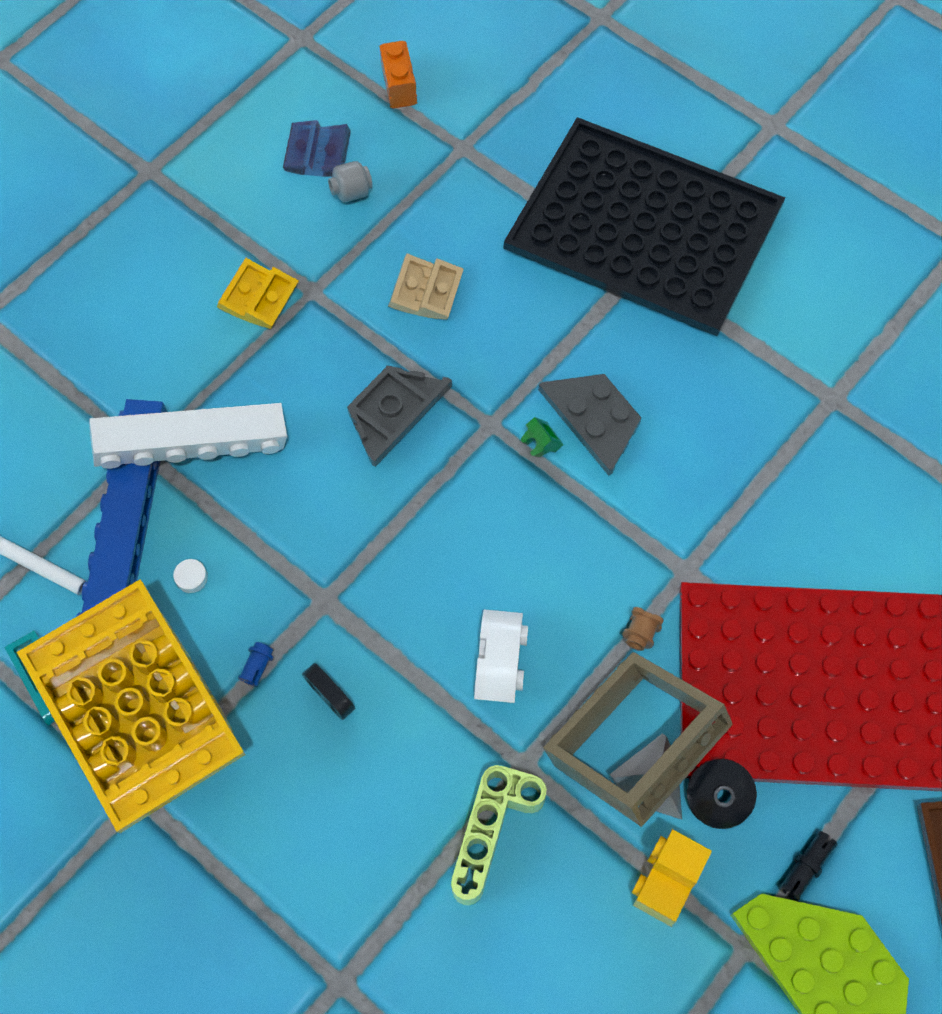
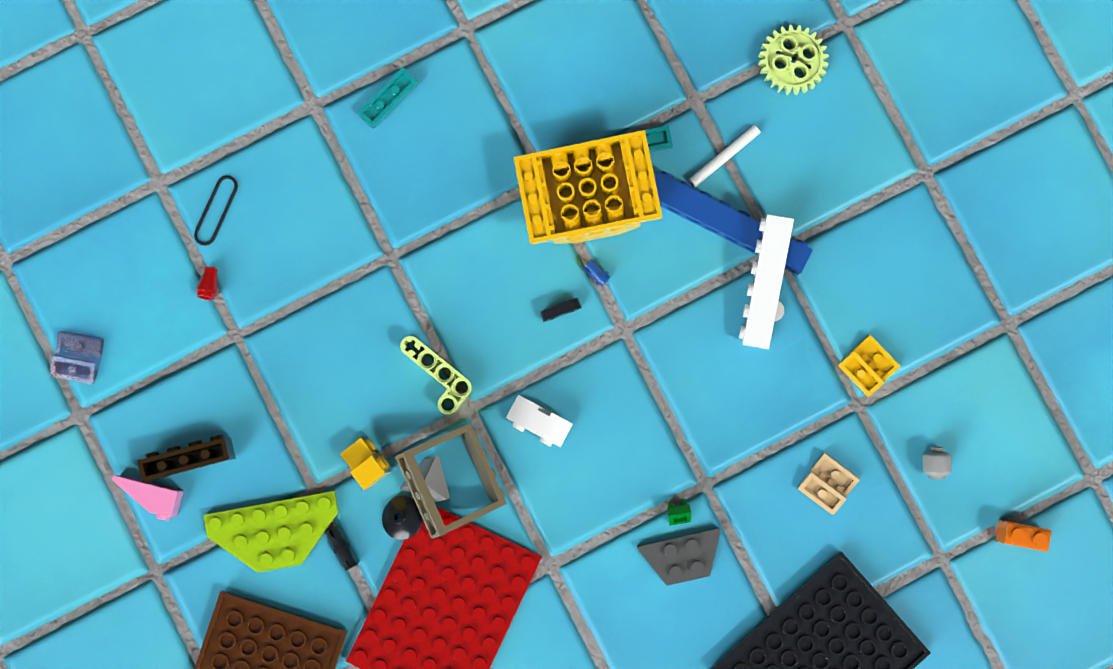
camera: 105 degrees right, 20 degrees up
(190, 576) = (673, 252): white tile -> none
(316, 149) = (979, 451): slope -> none
(393, 407) = (741, 423): dark grey wing -> none
(642, 629) = (520, 517): medium nougat brick -> none

